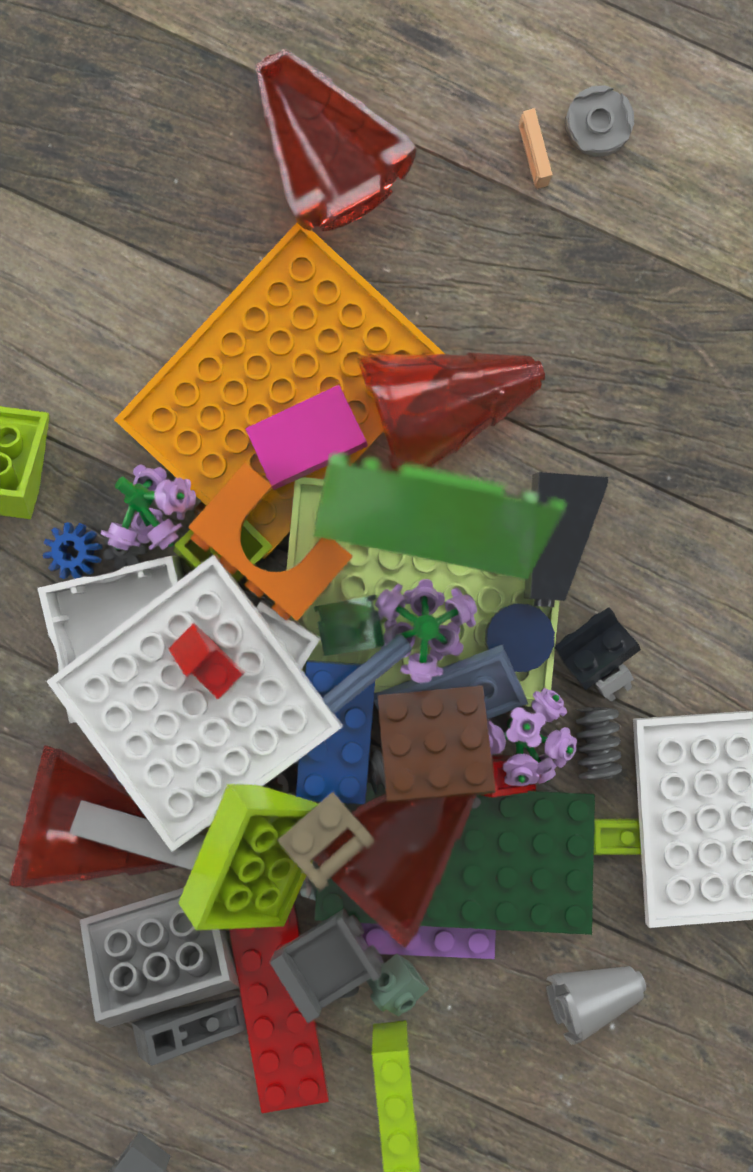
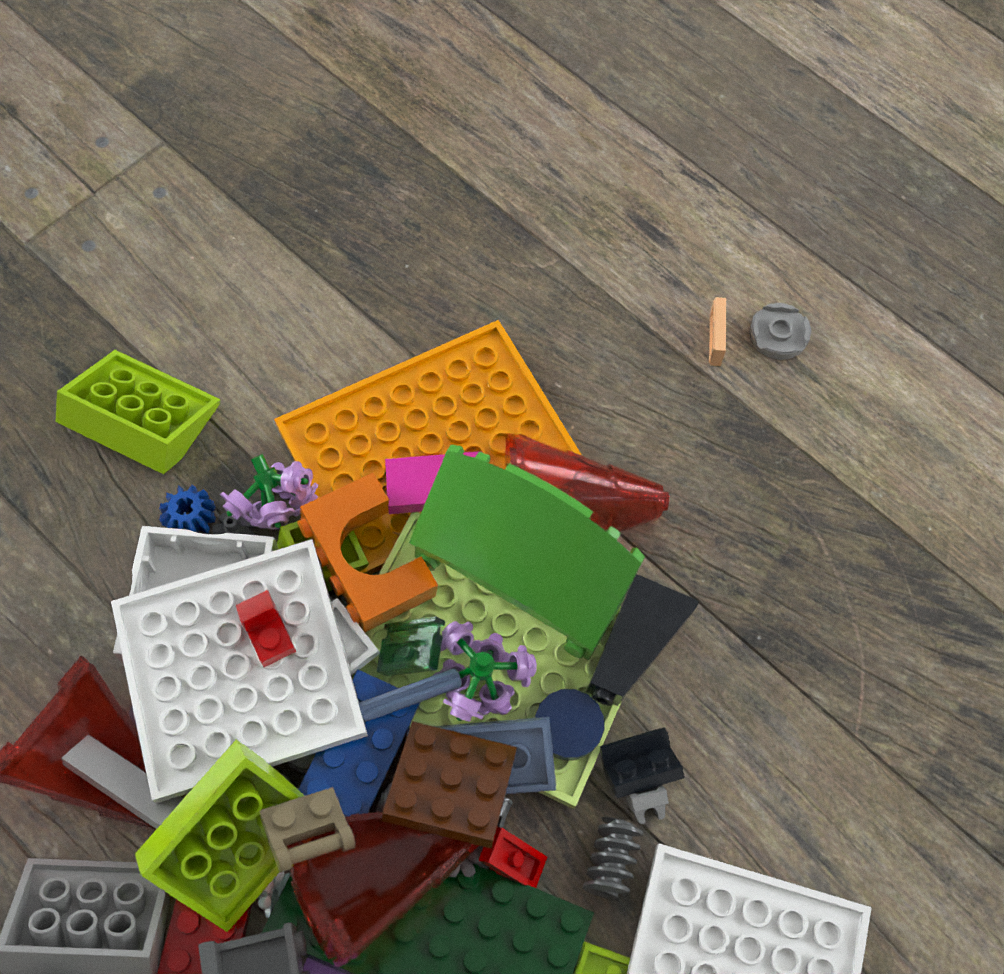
camera: 15 degrees right, 25 degrees down
(328, 145) = (543, 275): clear red cone -> none
(525, 733) = (545, 802): lavender plant -> none

